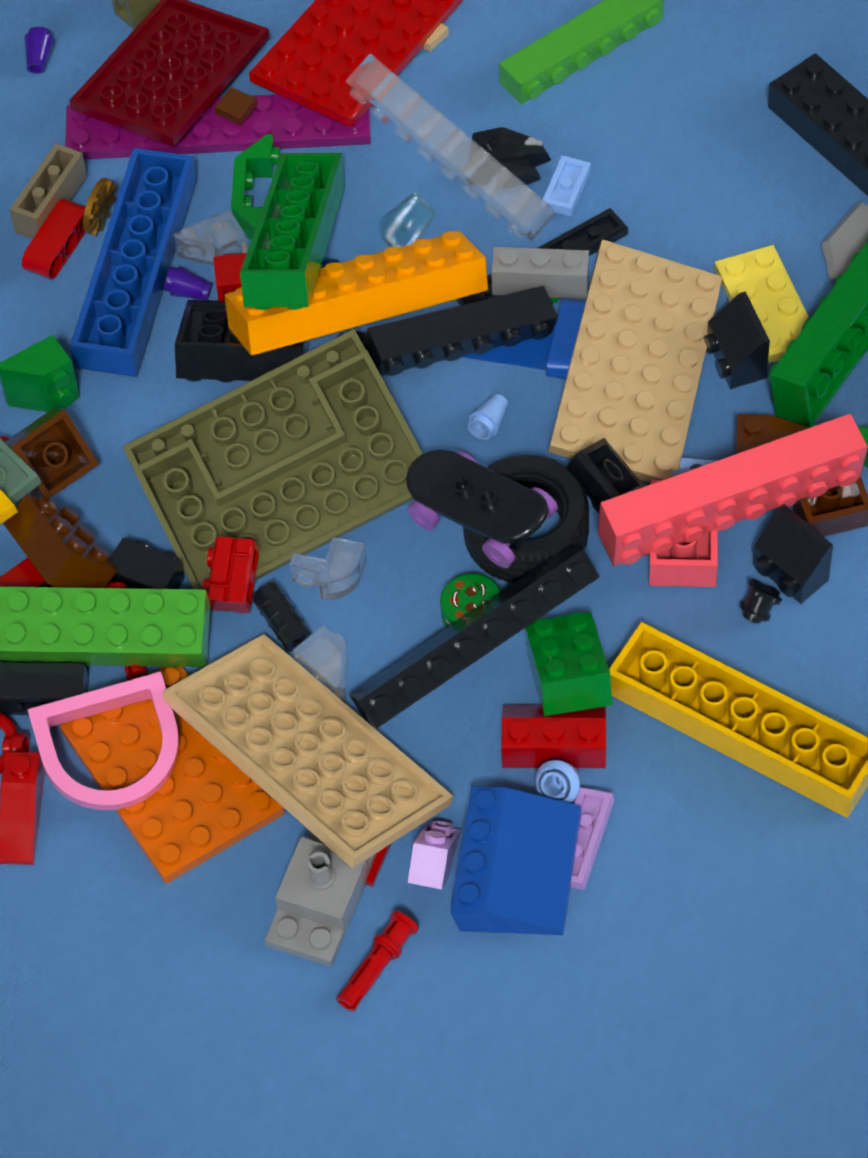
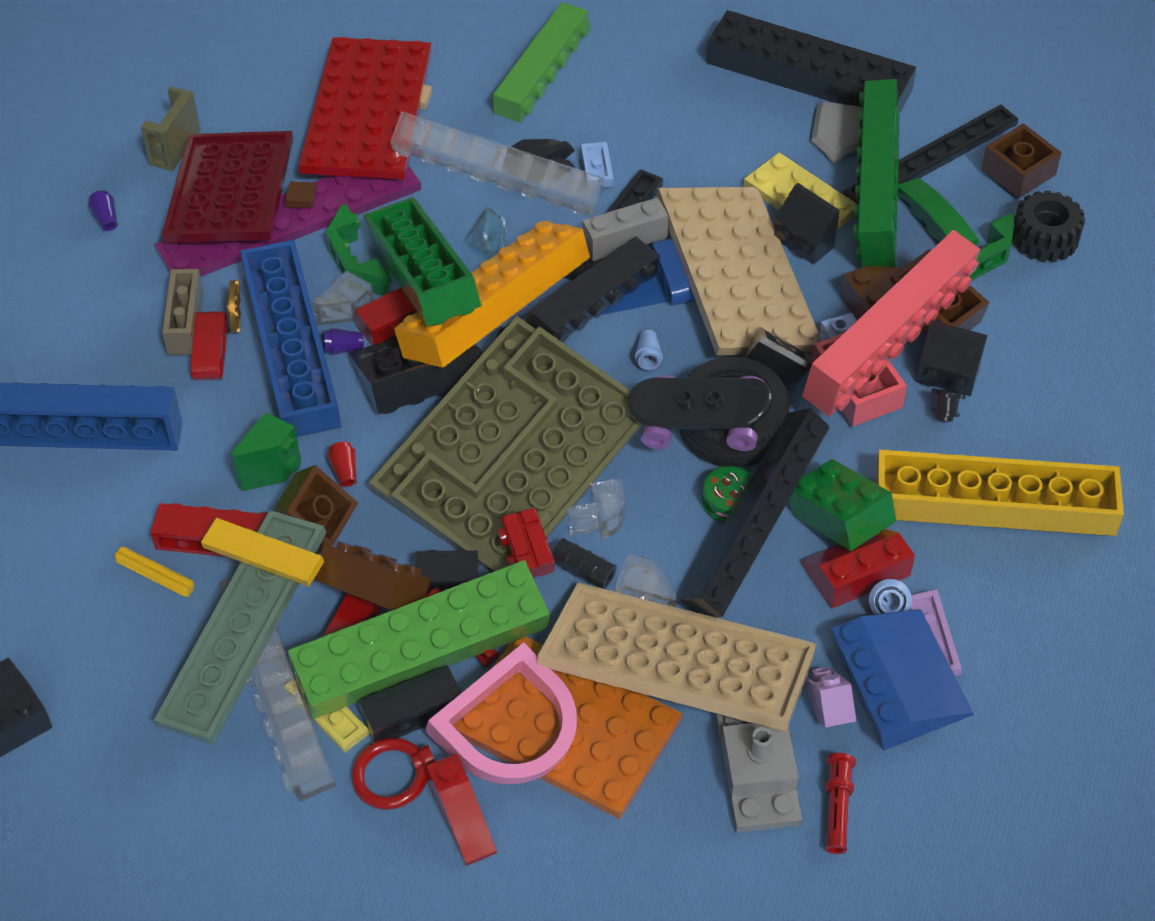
camera: 30 degrees left, 5 degrees down
(114, 416) = (343, 462): none -> red cone

